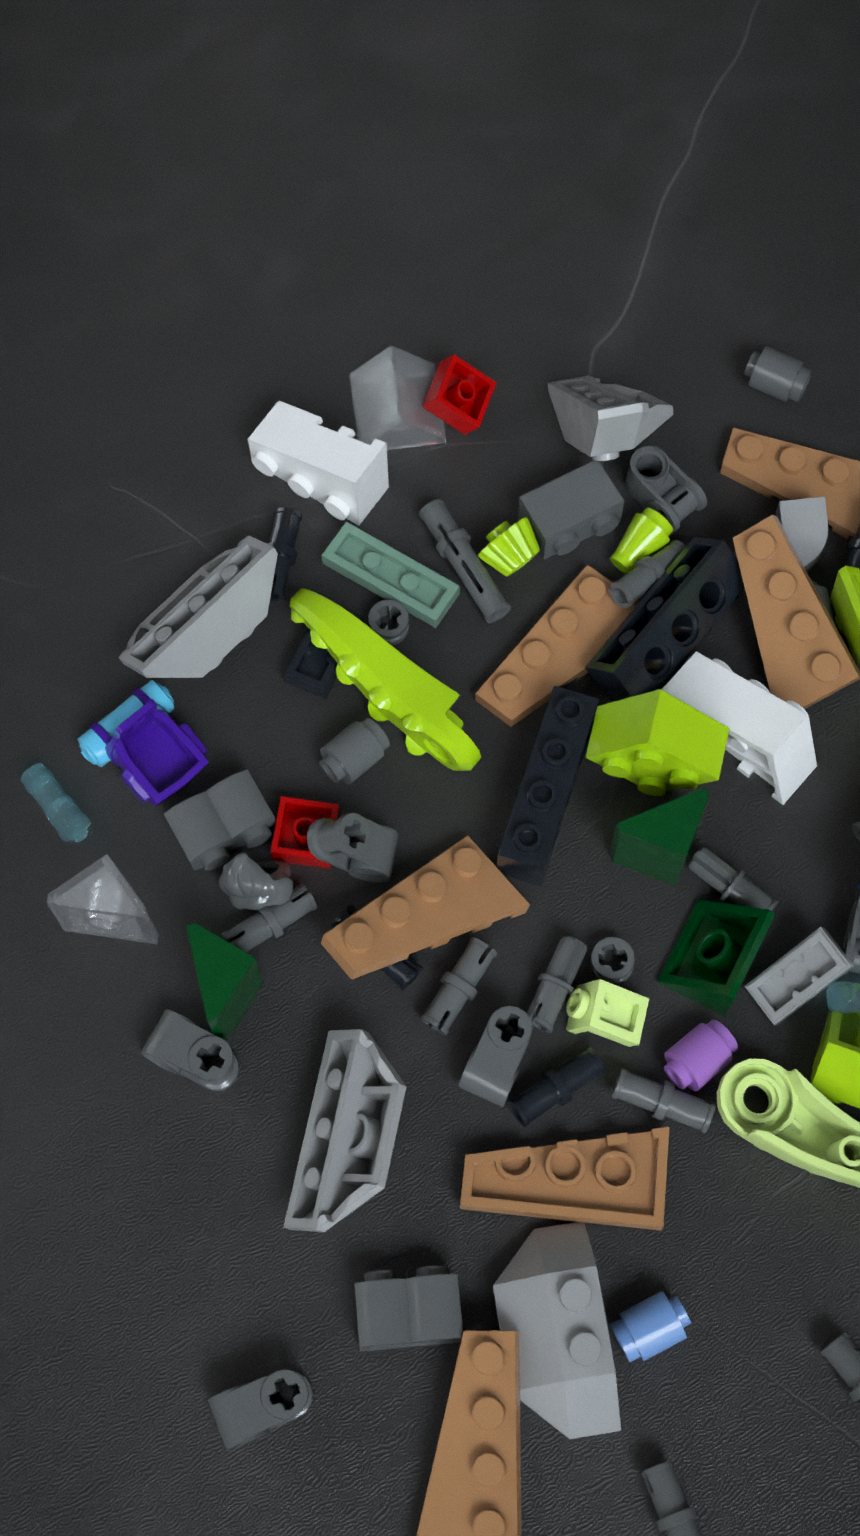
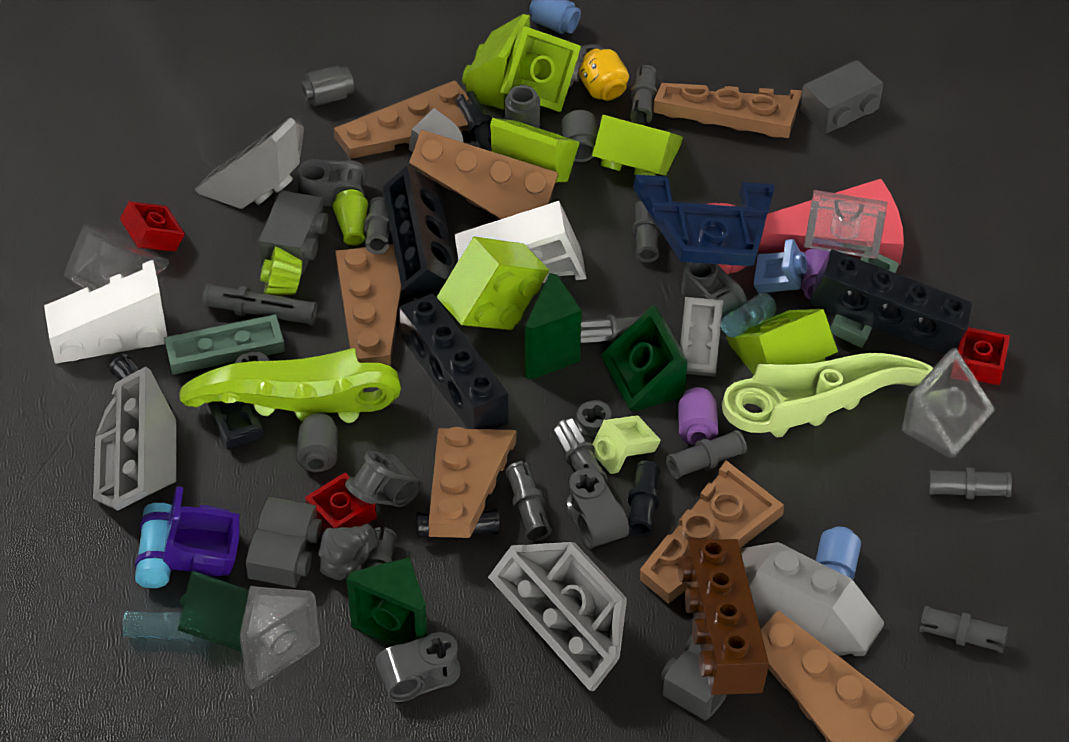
camera: 50 degrees left, 20 degrees down
(102, 827) = (213, 610): none -> clear green piece
(456, 1289) = (724, 617): none -> reddish brown brick

